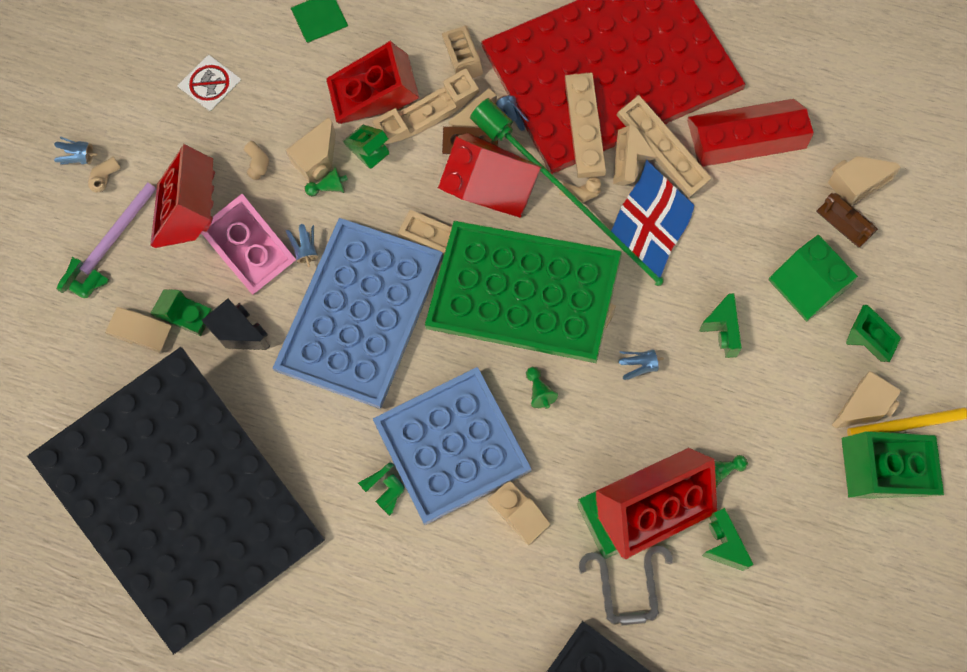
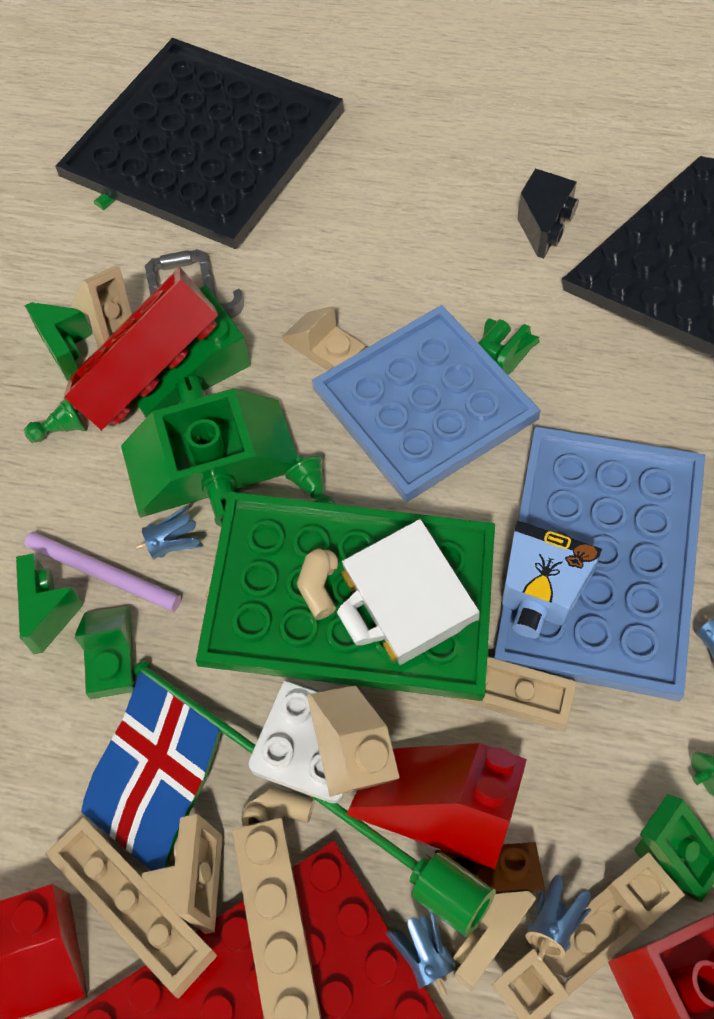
camera: 170 degrees right, 10 degrees down
(321, 611) = (544, 207): none -> black slope
(401, 286) = (545, 577): none -> light blue torso
(447, 109) = (554, 927): none -> flat silver piece
(489, 272) = (407, 594): none -> white piece
(534, 189) = (351, 741): none -> tan slope
(545, 288) = (311, 582): none -> tan arm
(555, 209) = (288, 745): none -> white bracket
(581, 423) = (206, 449): none -> green slope
(681, 295) = (107, 652): none -> green slope
(687, 349) = (103, 571): none -> lavender bar
(689, 553) = (104, 301): none -> tan slope

